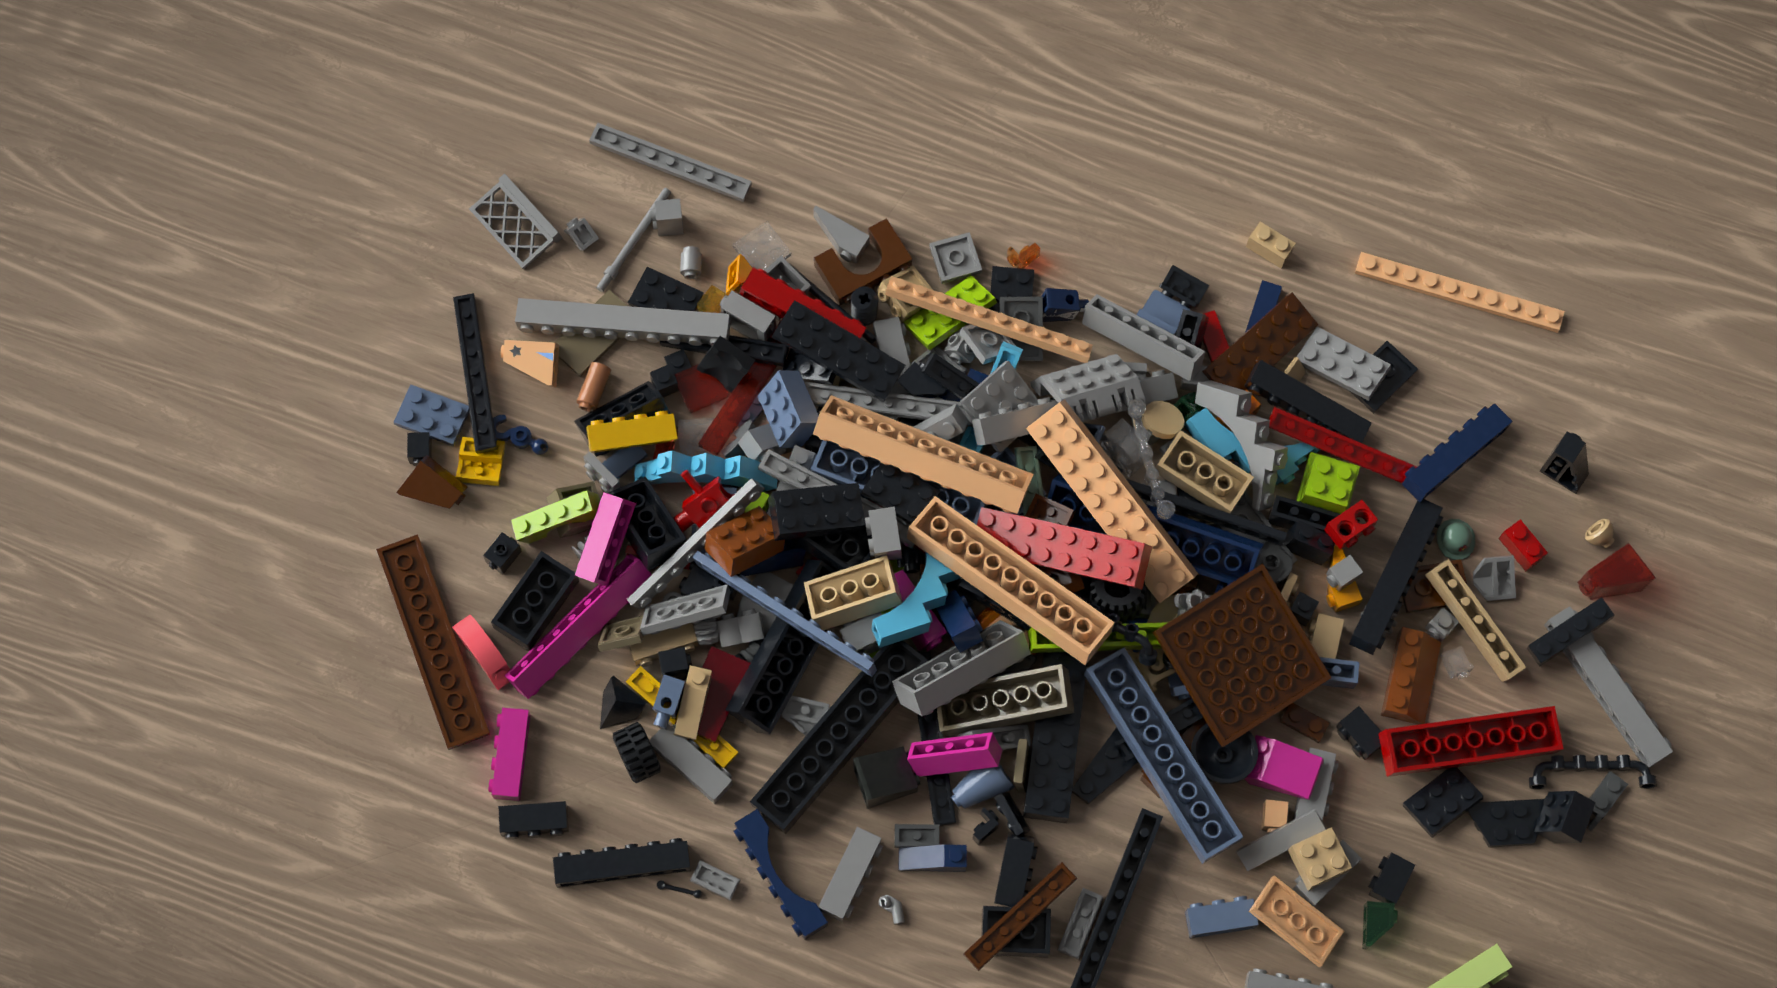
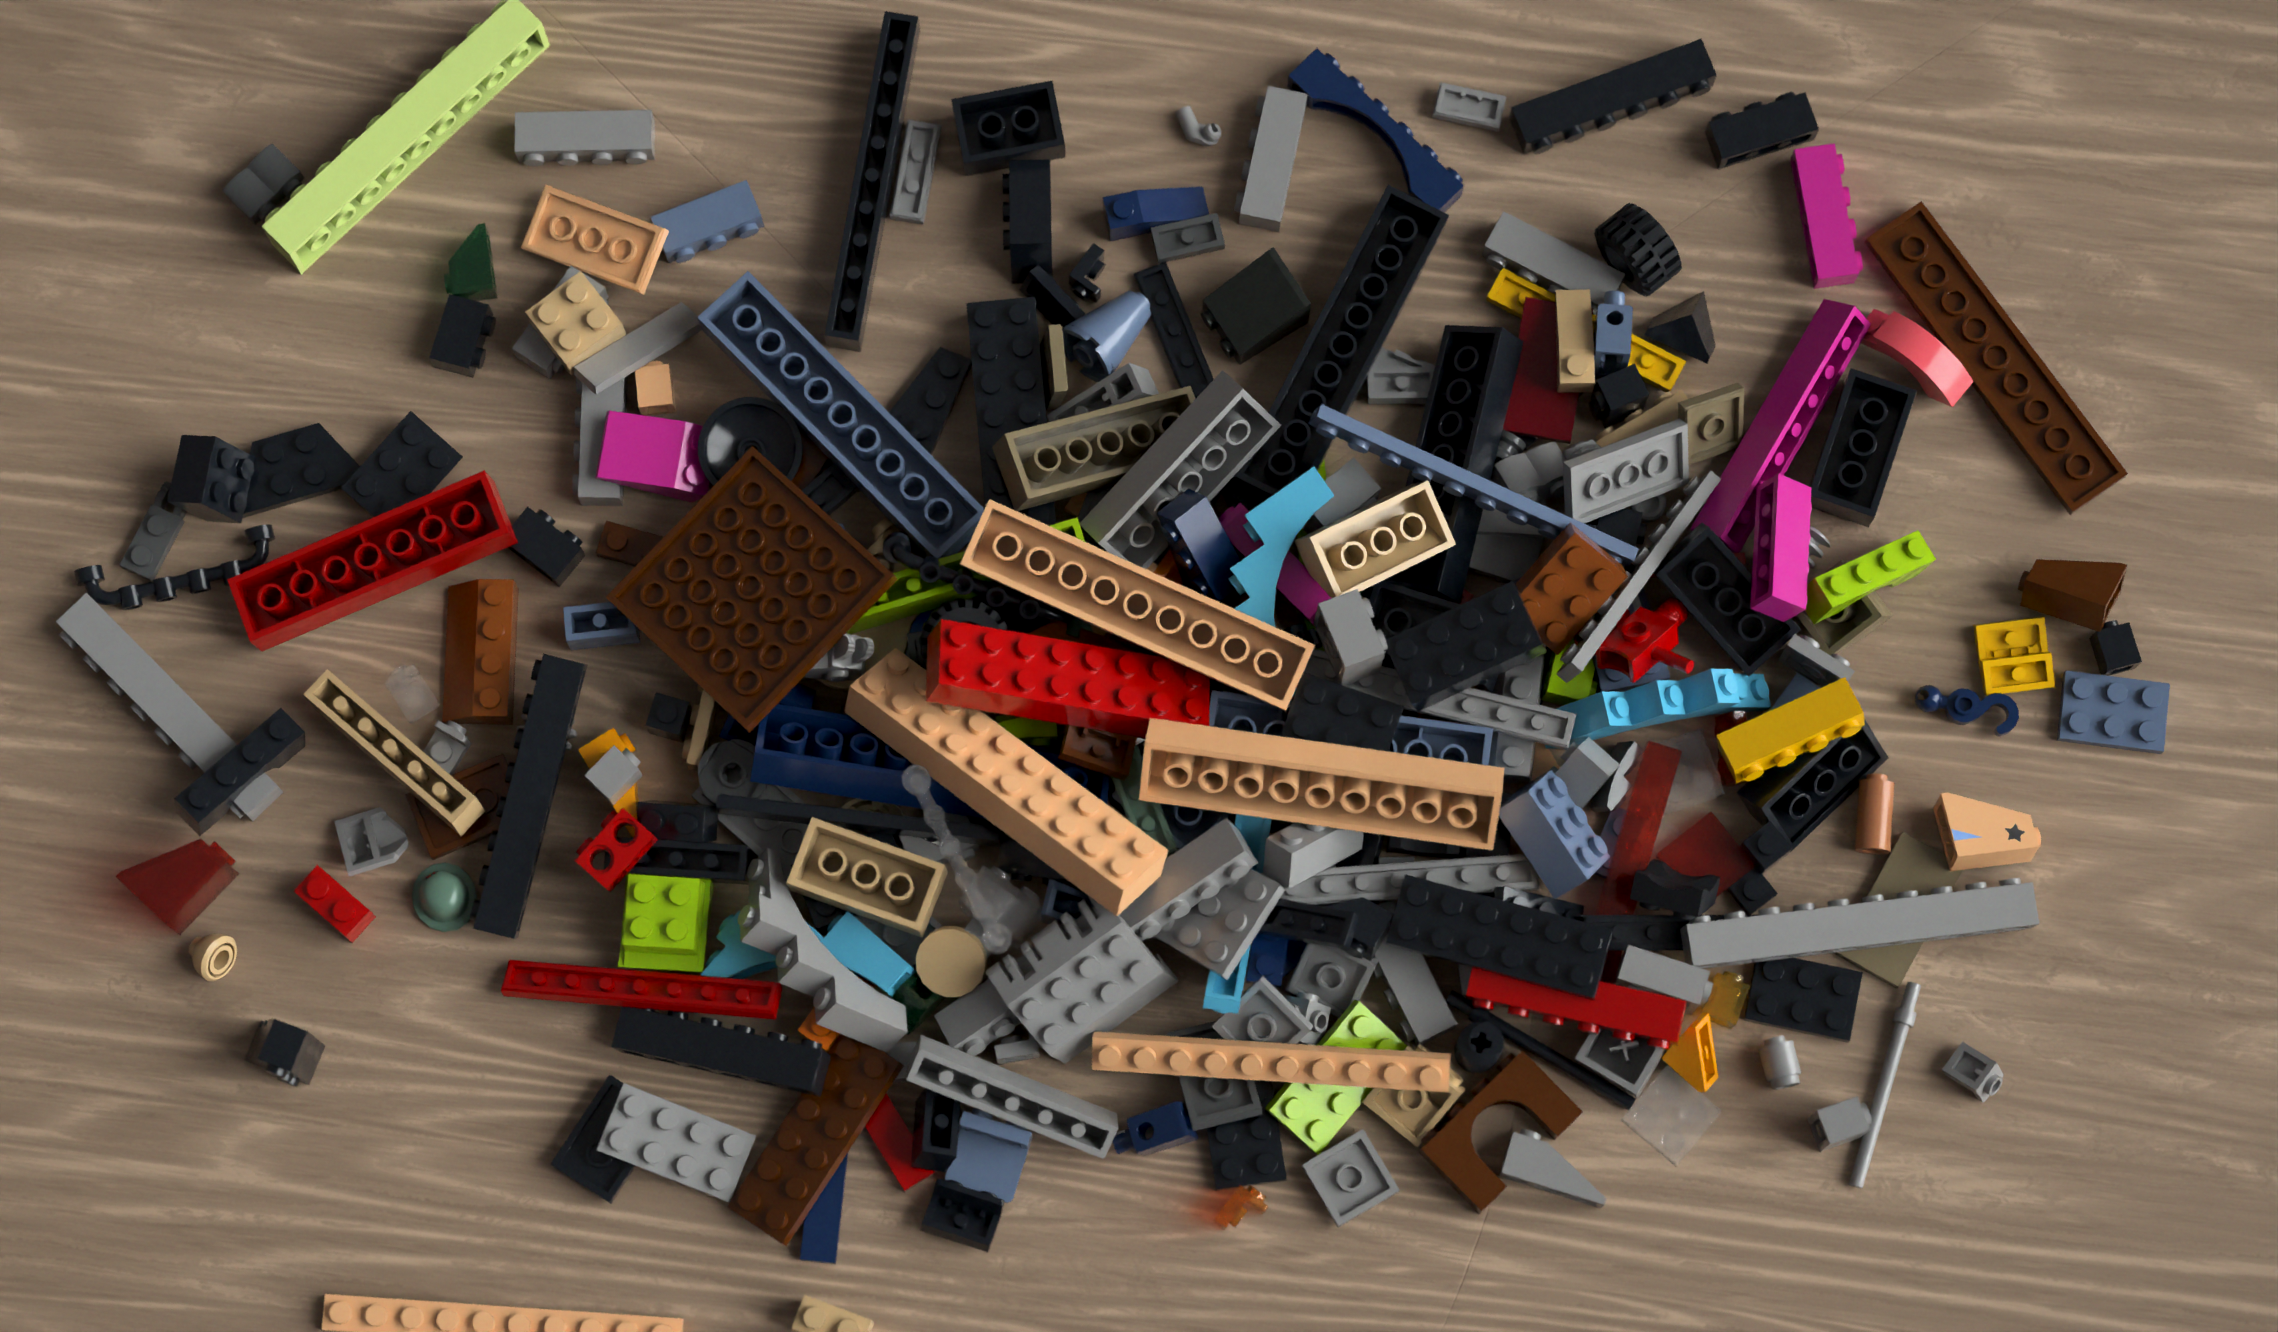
camera: 170 degrees right, 5 degrees up
(475, 373) = (2068, 792): black tile -> none
(502, 561) = (1936, 523): black head -> none
(525, 206) = (2074, 1094): light grey fence -> none
(661, 885) = (1545, 86): black hinge -> none
(670, 162) = (1865, 1234): light grey plate -> none
(954, 754) = (1159, 346): dark pink brick -> none
(1020, 916) = (1006, 139): reddish brown tile -> none
(1295, 369) = (753, 1112): tan slope -> none
(1326, 635) = (626, 679): tan brick -> none
(1456, 452) = (464, 1028): dark blue brick -> none

